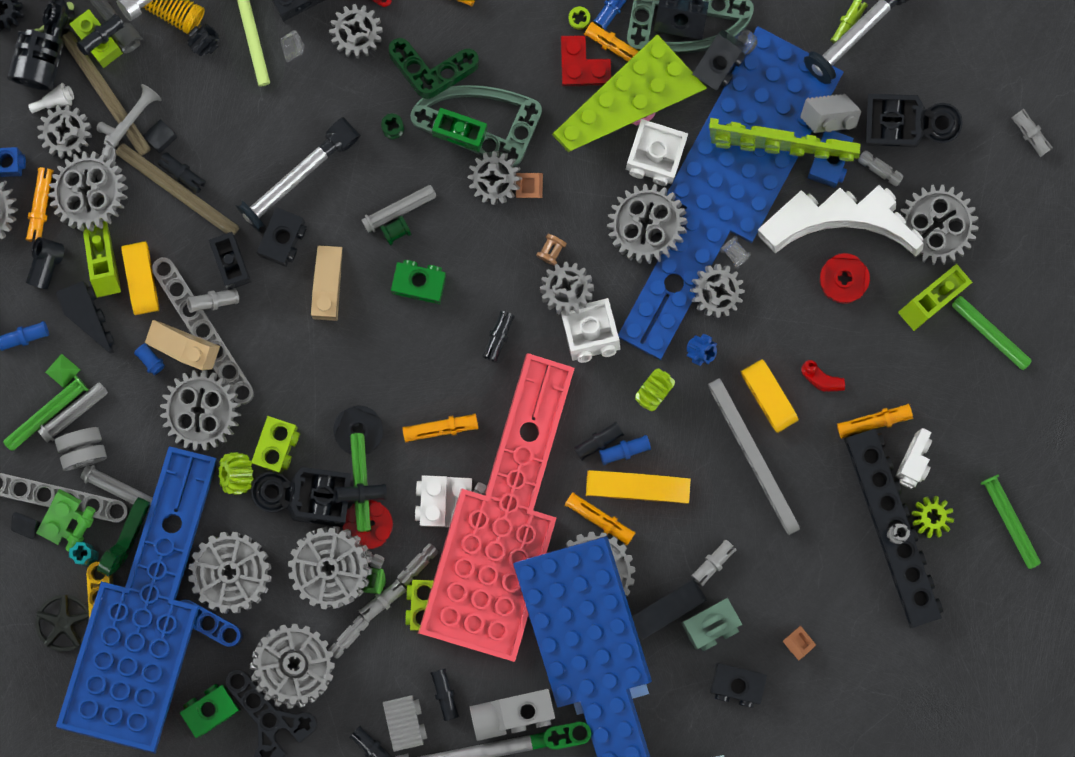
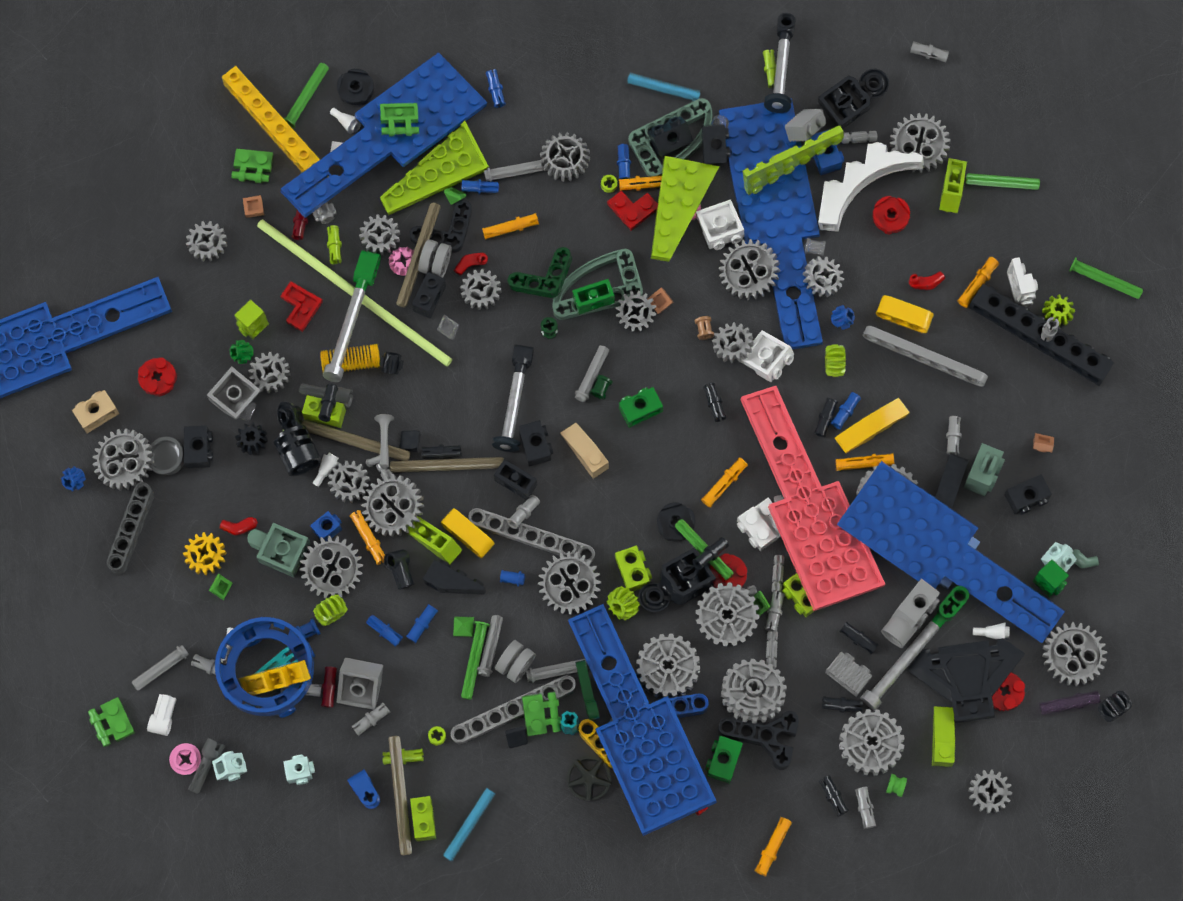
camera: 35 degrees left, 10 degrees down
(182, 346) = (525, 552): tan slope -> none

